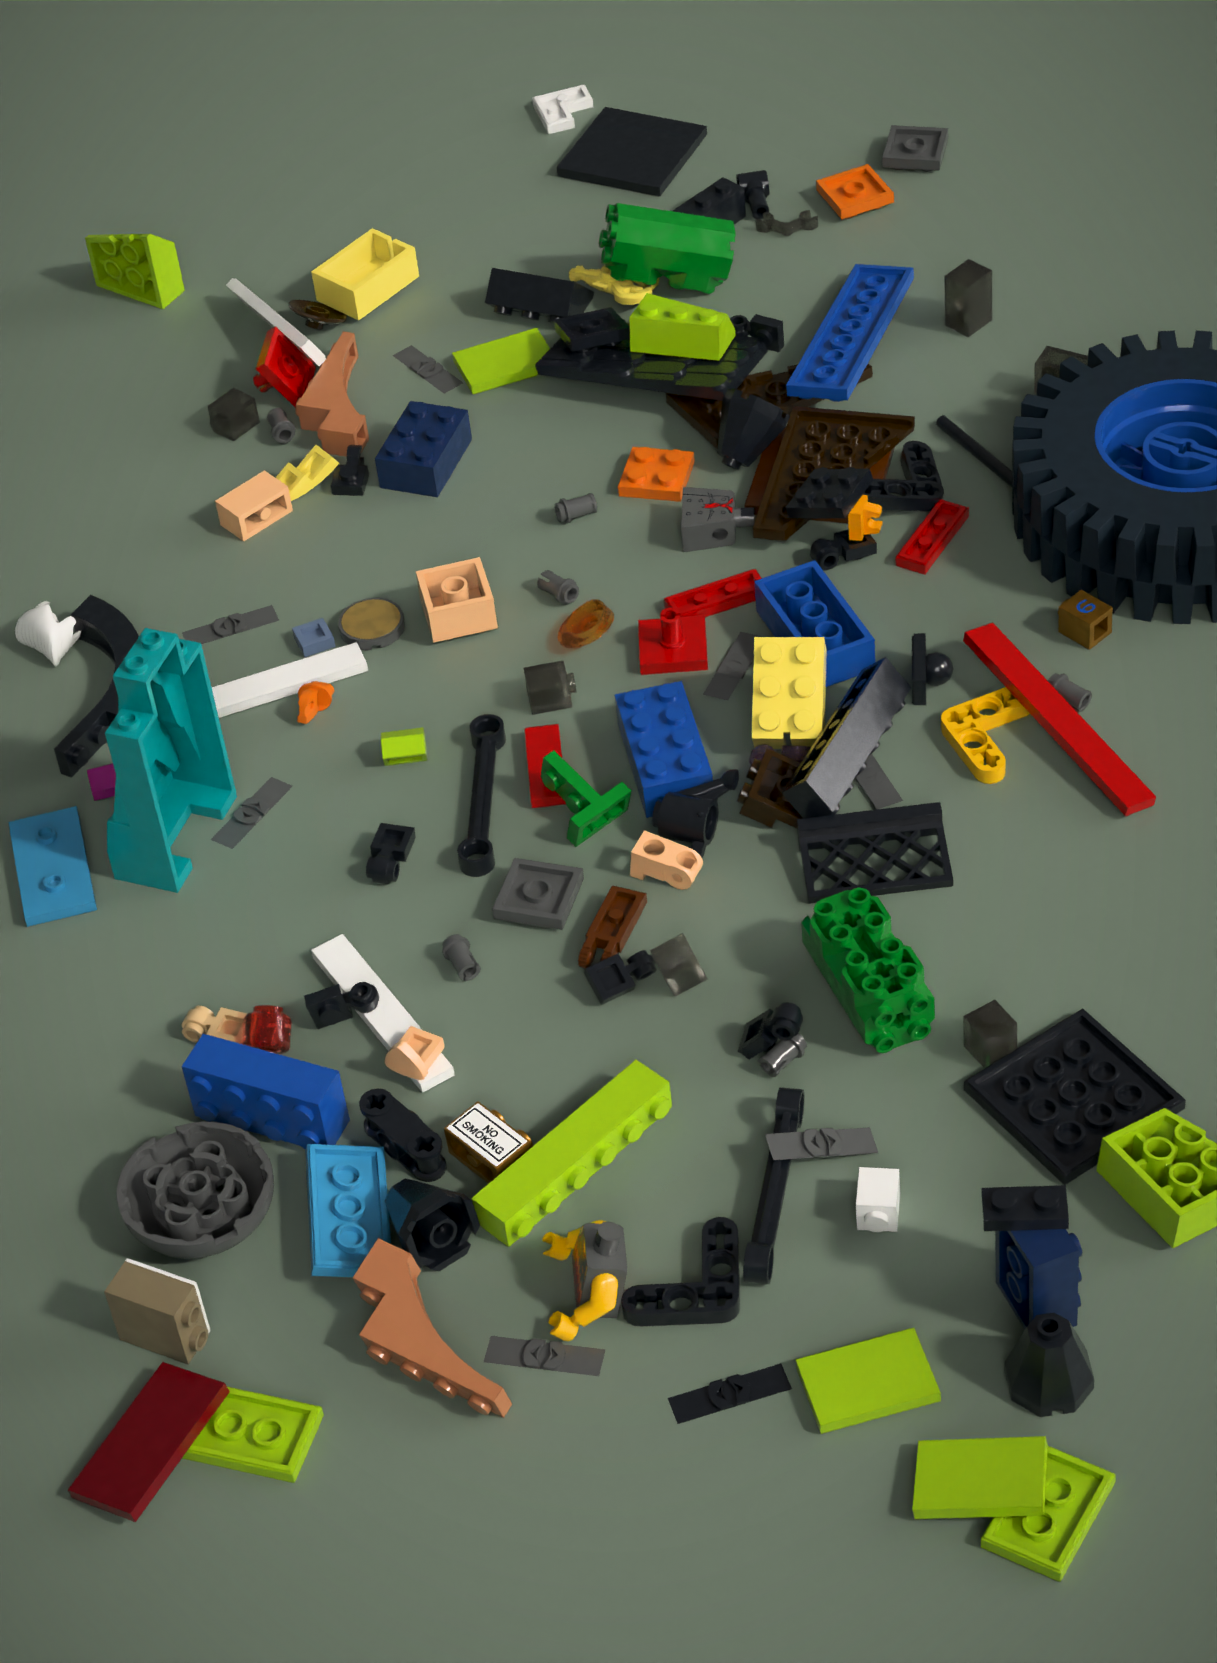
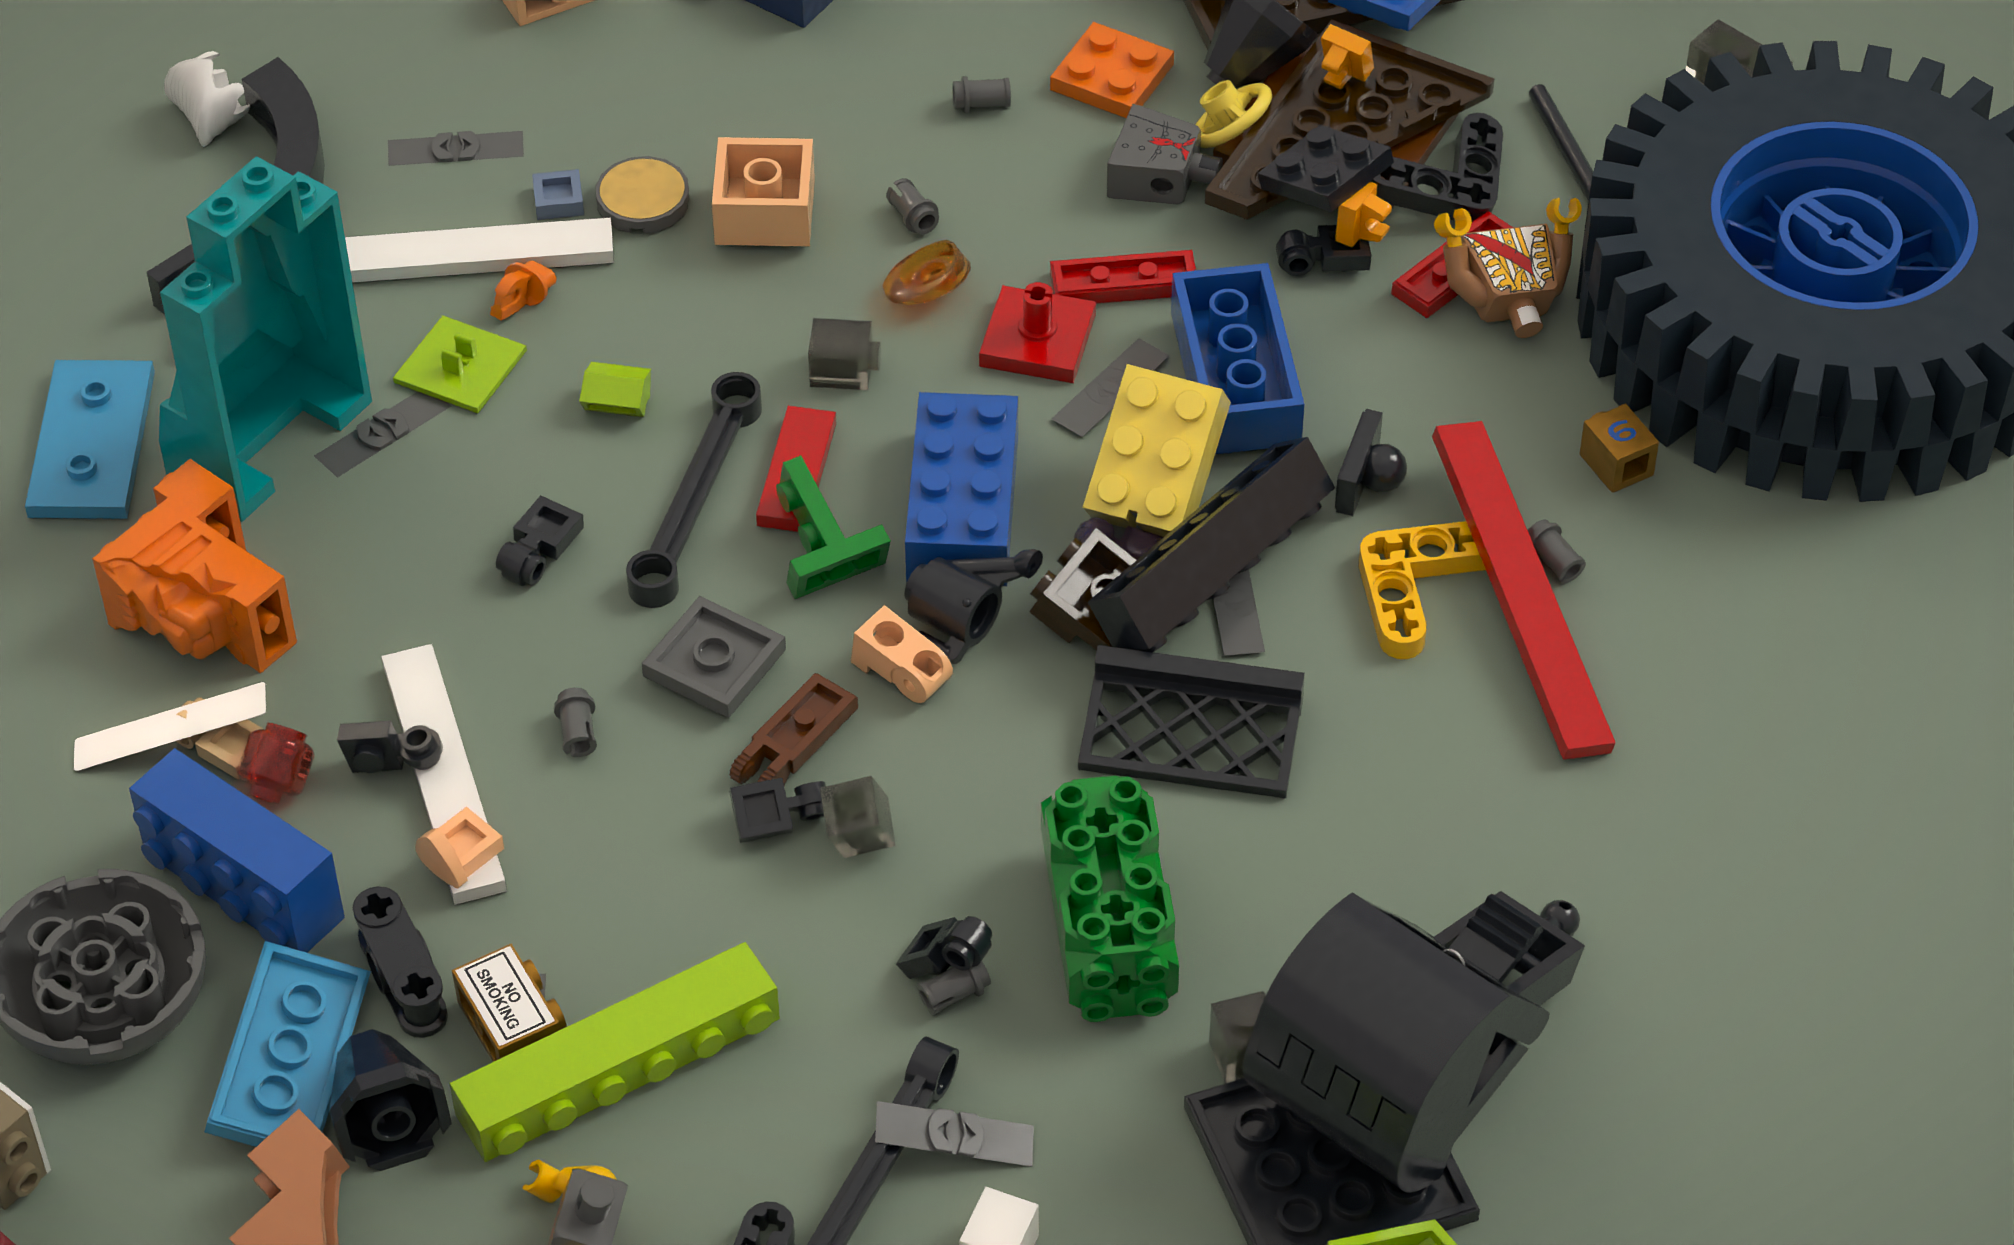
camera: 10 degrees right, 5 degrees up
(167, 931) = (191, 576): none -> orange brick
(183, 1029) = (169, 727): none -> white sticker
(288, 758) = (460, 364): none -> lime piece
(744, 476) = (1226, 109): none -> light yellow piece
(814, 423) = (1345, 56): none -> light orange tile
(970, 529) = (1509, 270): none -> torso
(1103, 975) = (1403, 1032): none -> black piece

